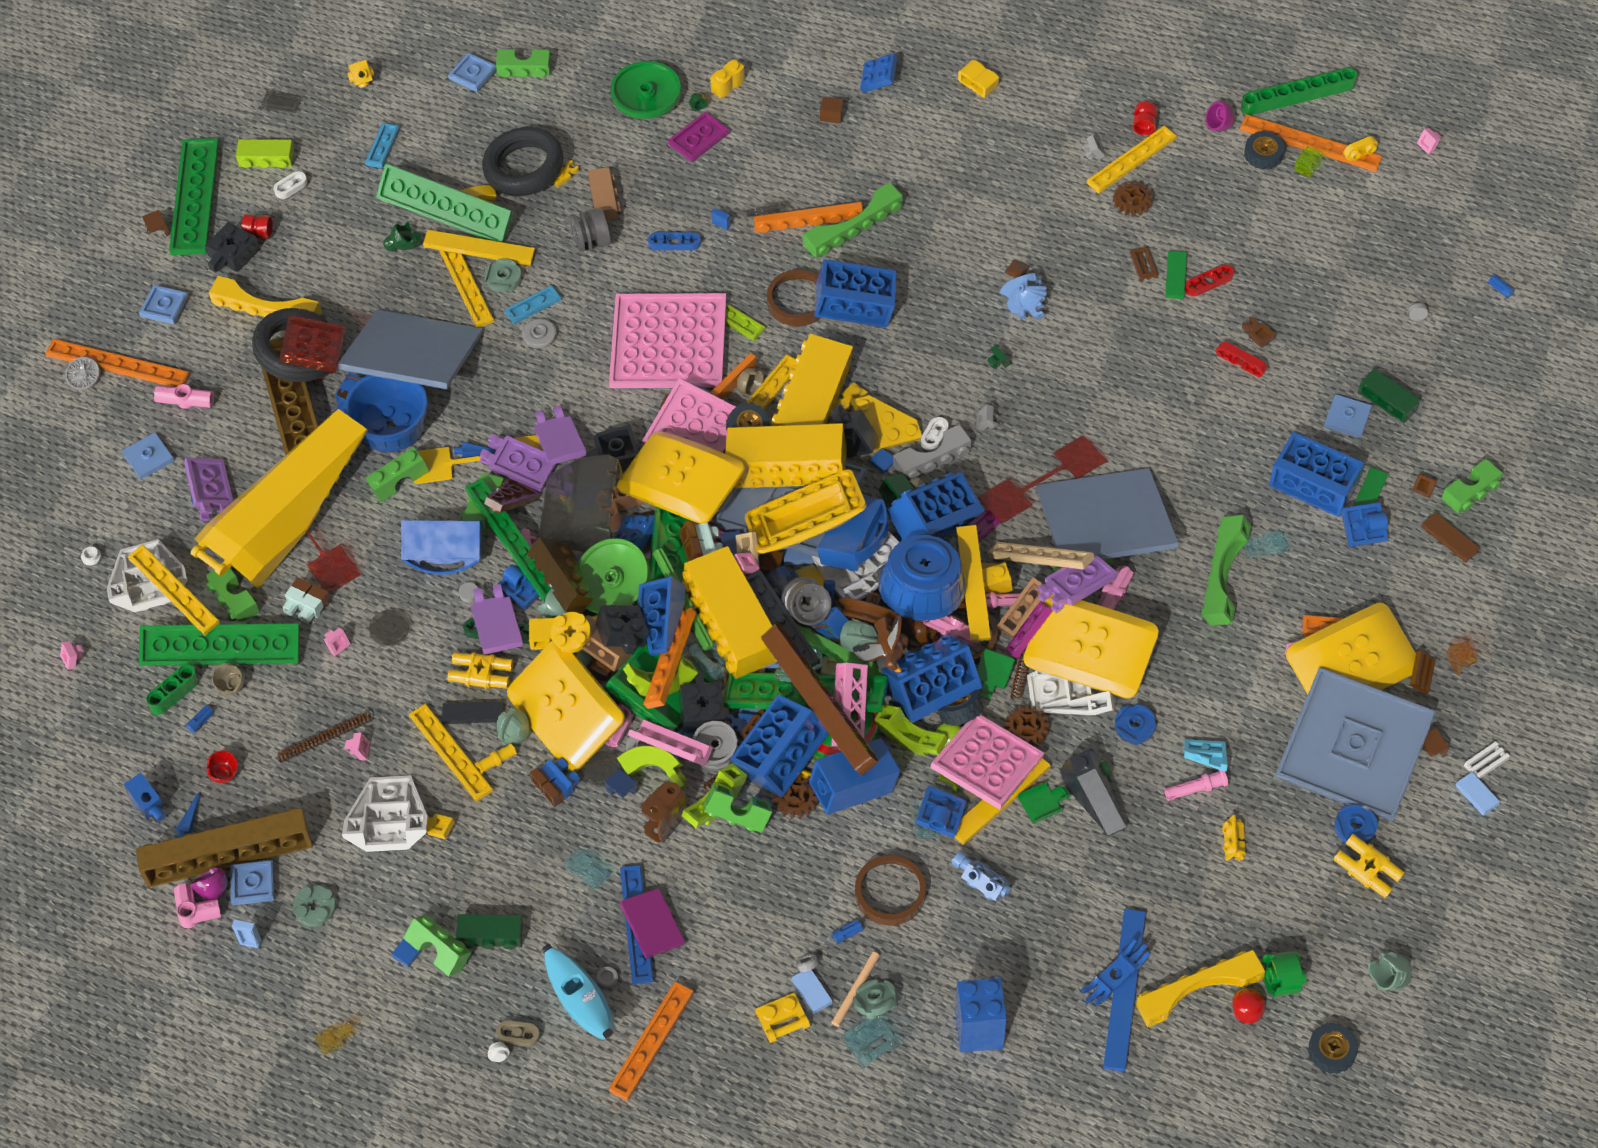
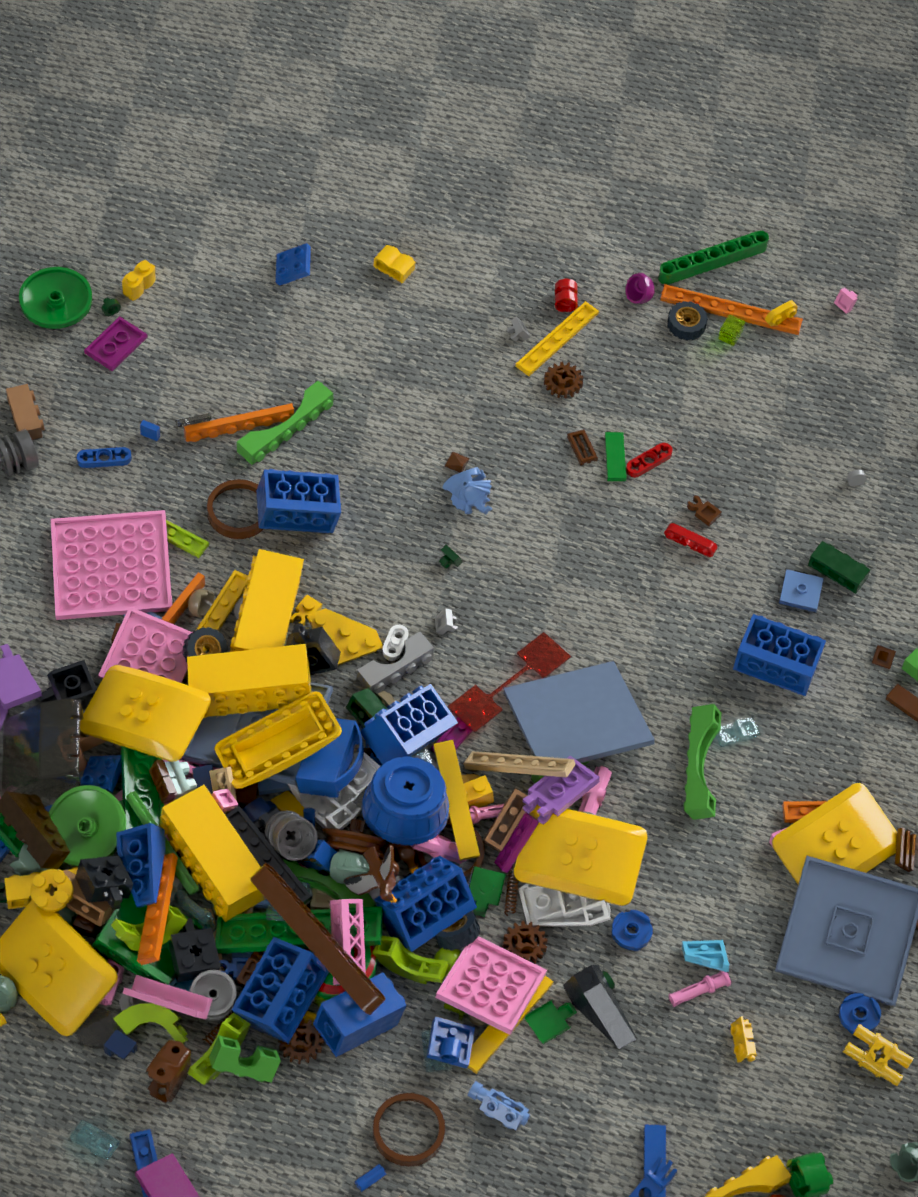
camera: 15 degrees left, 0 degrees up
(553, 782) = (49, 1050): hips -> none
(831, 110) = (249, 306): reddish brown panel -> none
(882, 461) = (345, 675): blue tile -> none
(1365, 524) = (832, 702): blue plate -> none
(1371, 487) = (831, 669): green tile -> none

